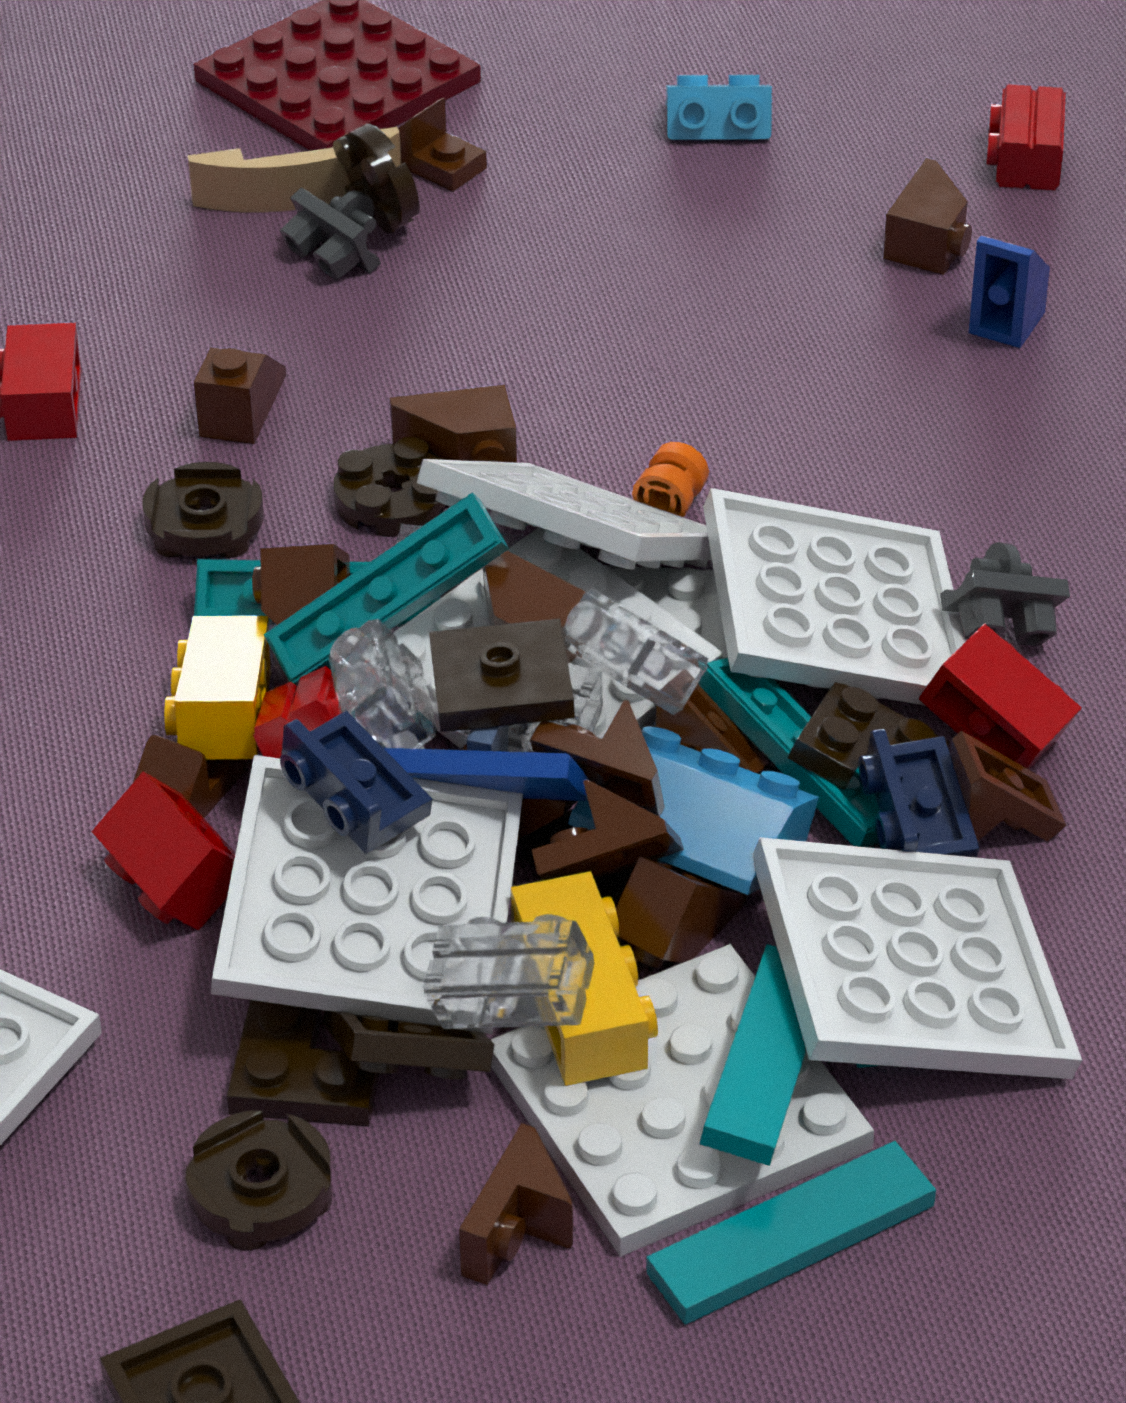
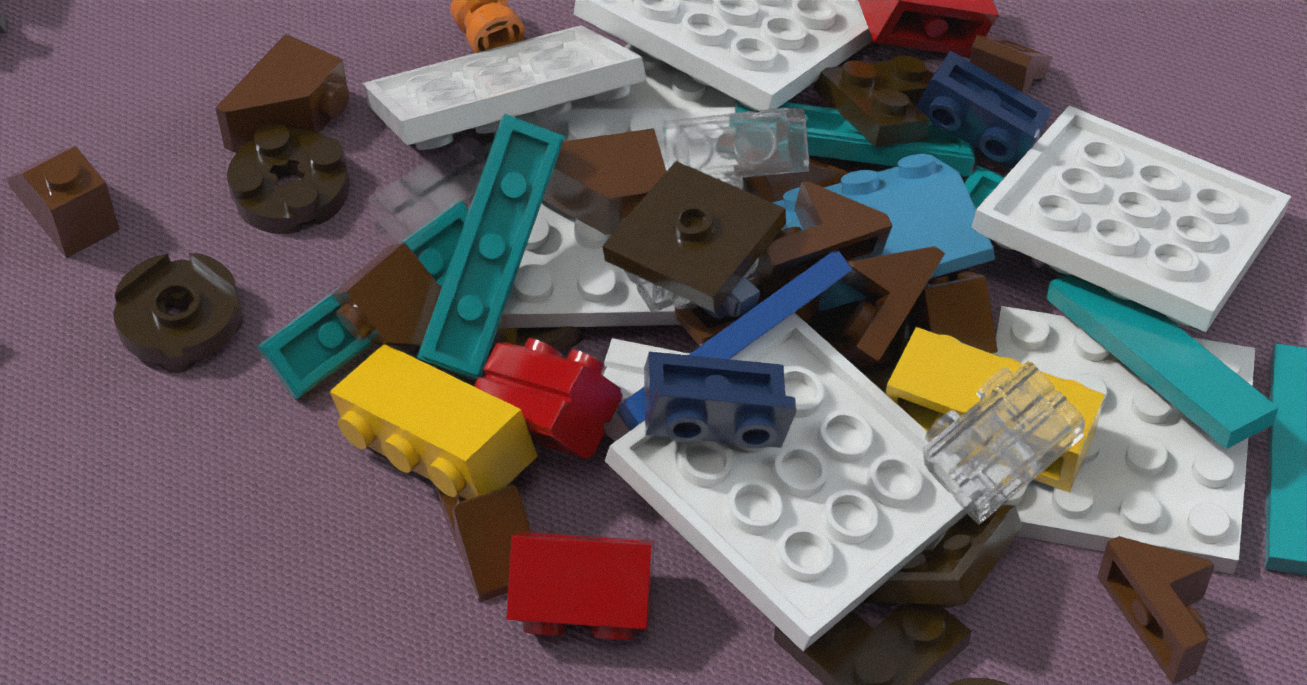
camera: 50 degrees left, 10 degrees up
(382, 686) = (592, 322): clear brick -> none

